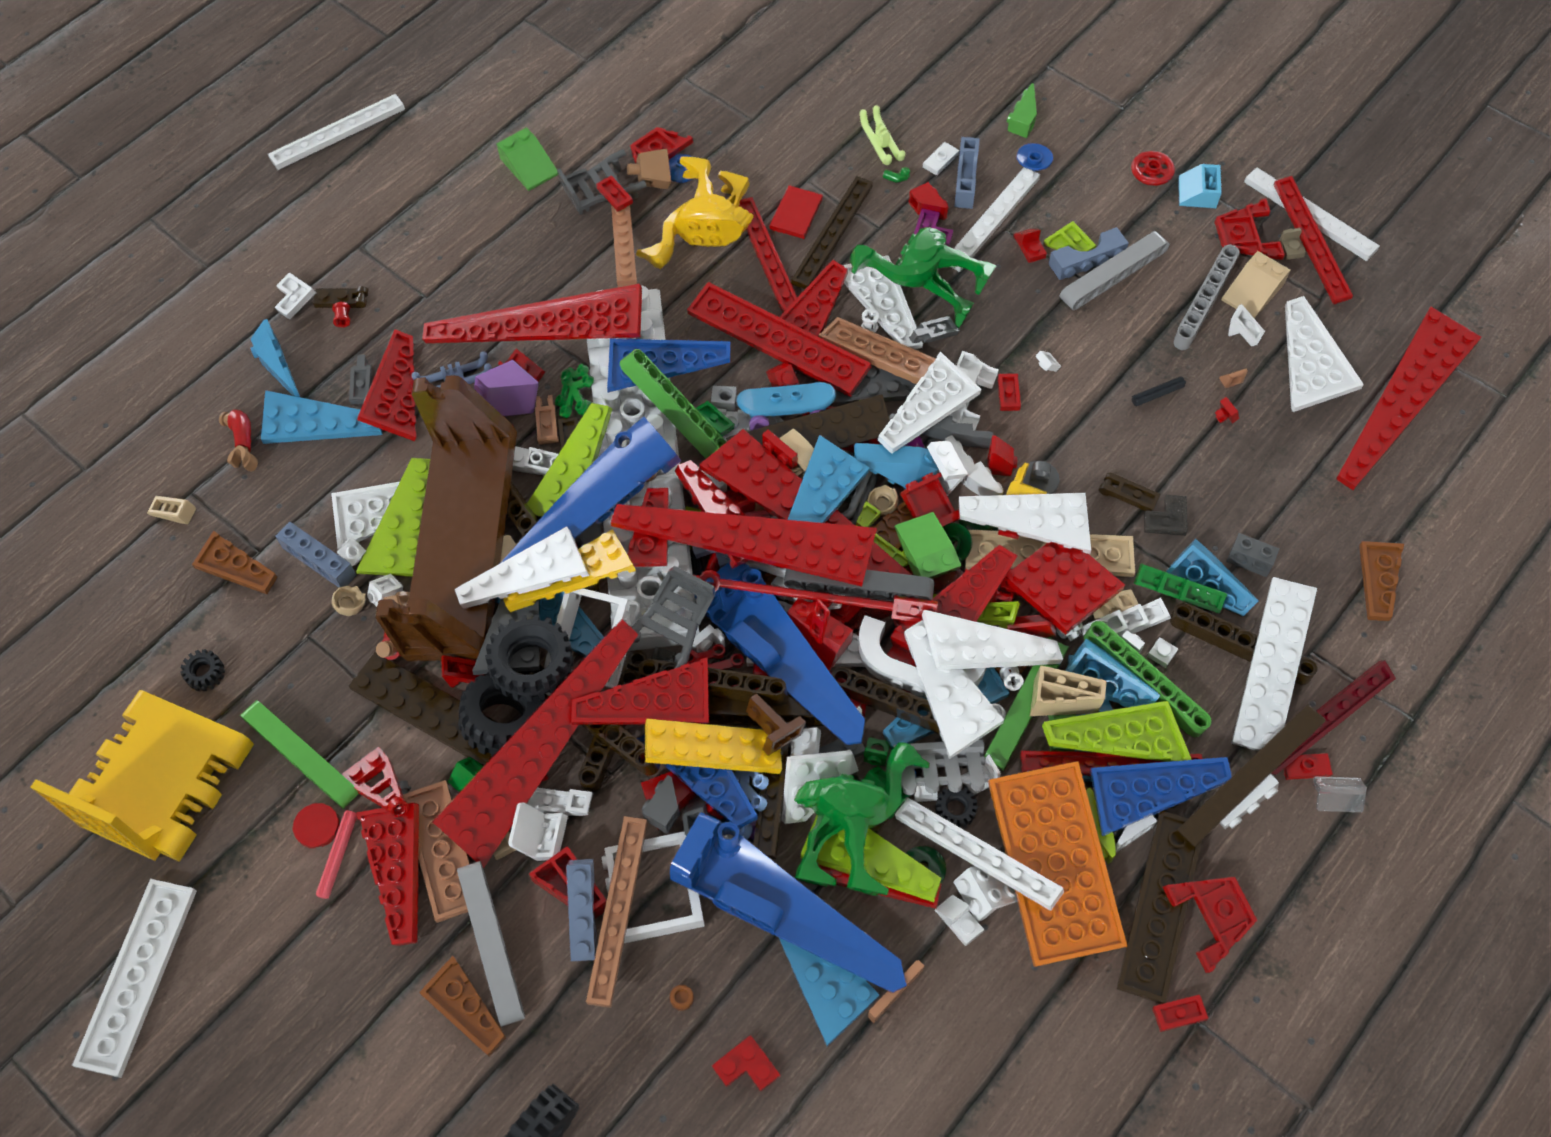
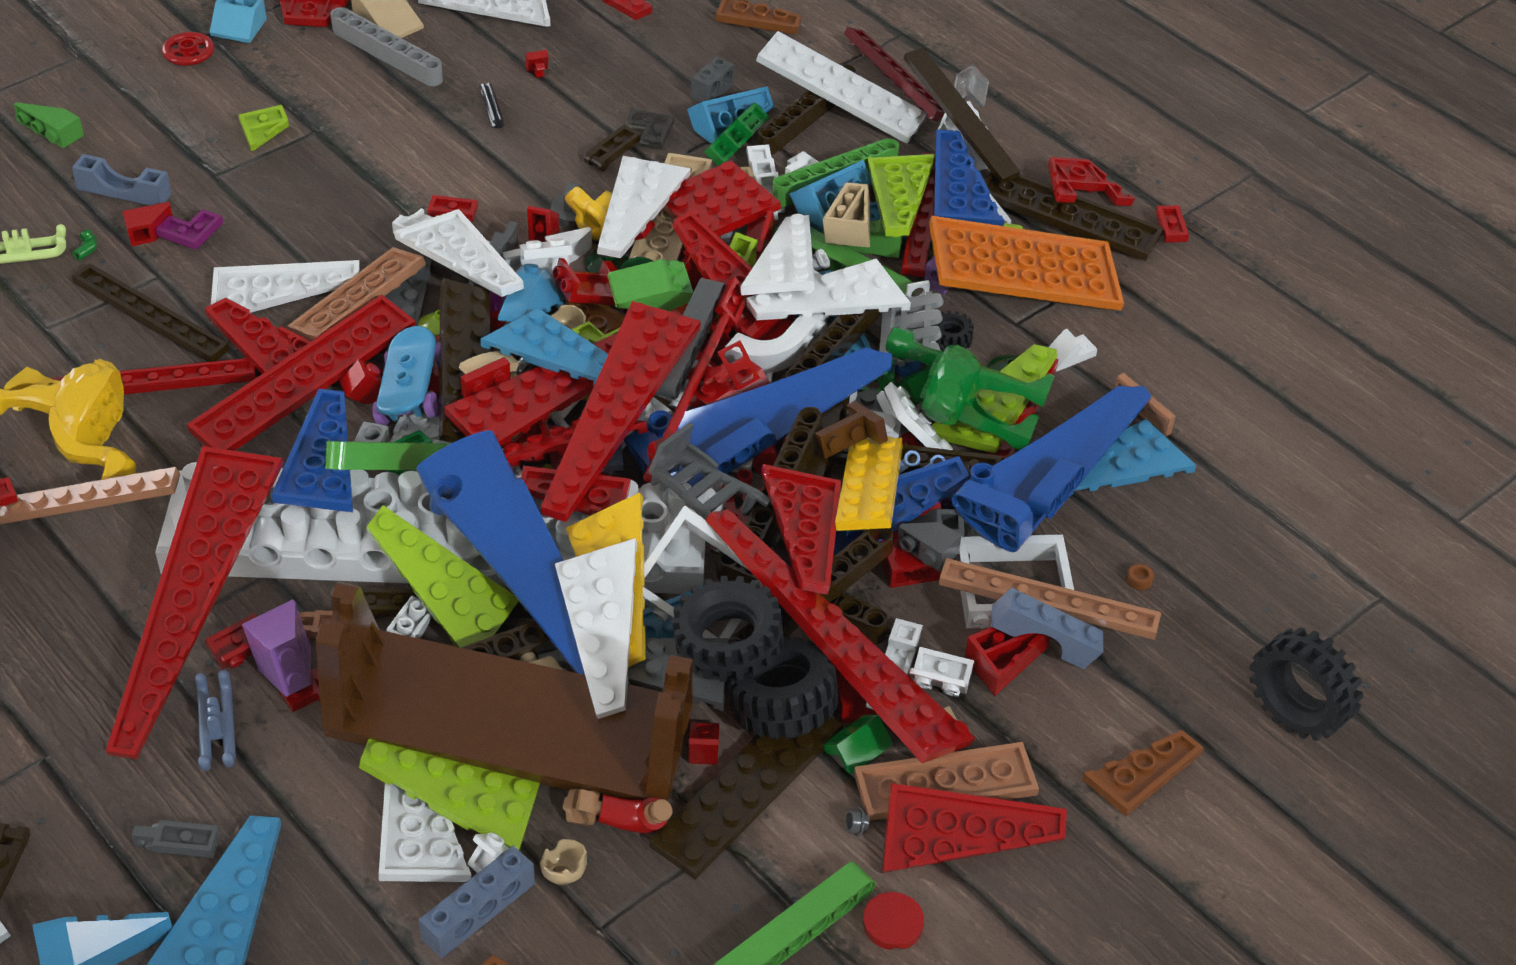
camera: 85 degrees left, 15 degrees down
(336, 854) = (937, 897): coral axle -> none
(341, 312) = (37, 858): red bush -> none
(367, 769) = (816, 844): plate -> none
(383, 587) = (555, 824): white bracket -> none
(390, 398) = (216, 794): red wing -> none
(491, 944) = (1071, 730): light grey beam -> none
(569, 380) = (303, 579): green plant -> none
(746, 1058) = (1210, 533): red plate -> none
(796, 212) = (94, 339): red tile -> none
(872, 320) = (306, 296): white bush -> none
(920, 265) = (250, 231): green animal -> none
(934, 330) = (346, 246): dark grey hinge -> none
(940, 158) = (79, 205): white plate -> none
(980, 854) = (1023, 300): white plate -> none
(983, 892) = (1042, 324): white bracket -> none
(997, 213) = (196, 181): white plate -> none
(1030, 244) = (245, 158): red slope -> none
(1034, 156) = (124, 127): blue dish -> none
(1047, 361) = (424, 172): white plate -> none
(1068, 262) = (294, 128): sand blue arch -> none
(1114, 270) = (320, 102): light grey beam -> none
(1233, 378) = (494, 52): nougat slope -> none
(1246, 325) = (434, 29): white slope -> none

